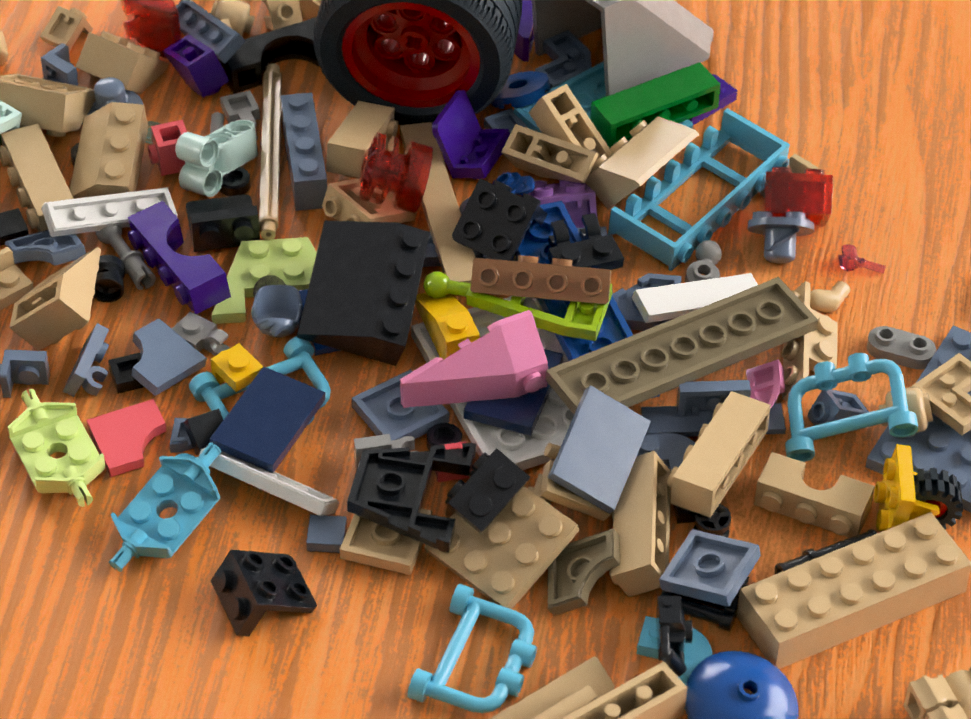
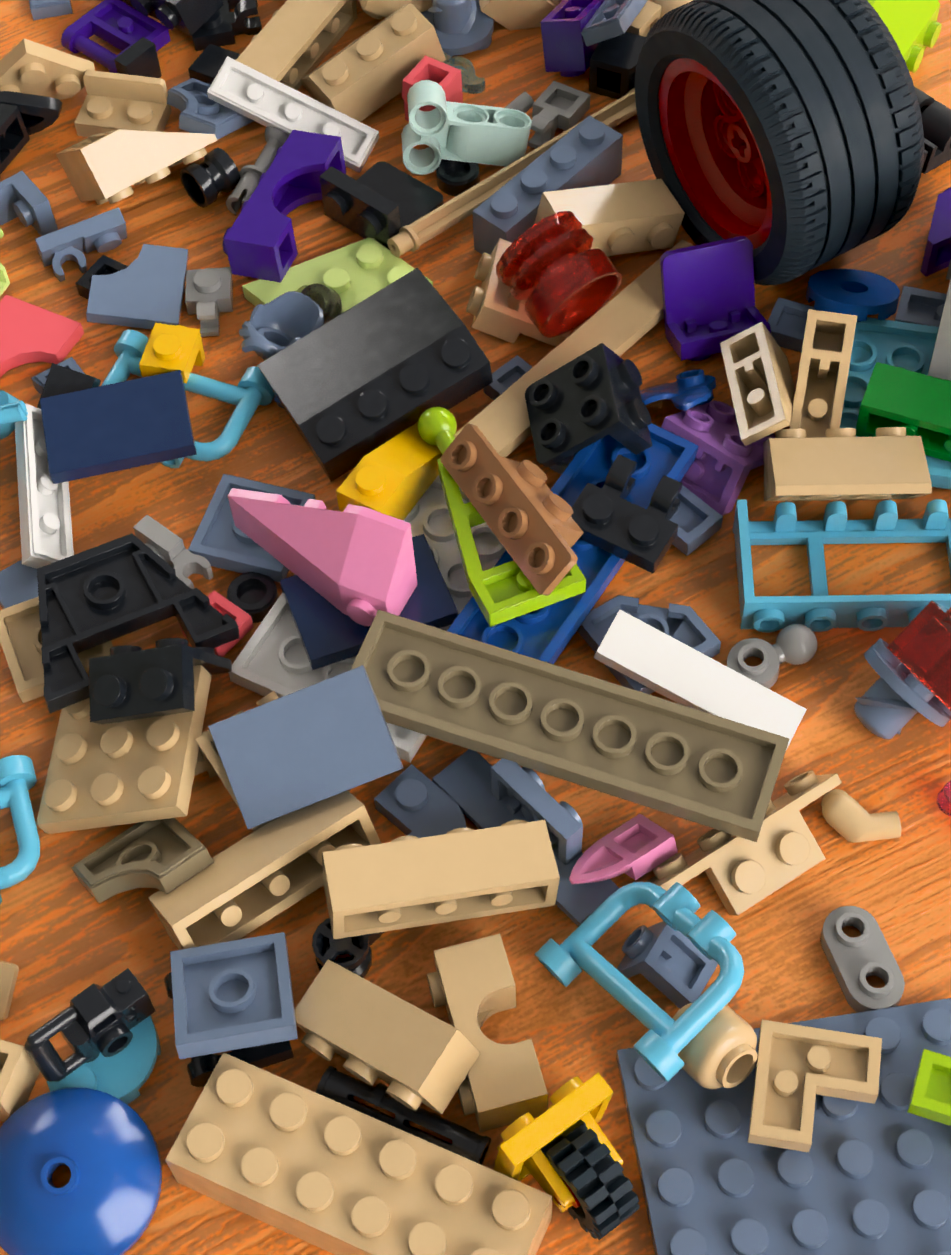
camera: 55 degrees right, 10 degrees up
(791, 523) = (384, 1038): none -> tan brick

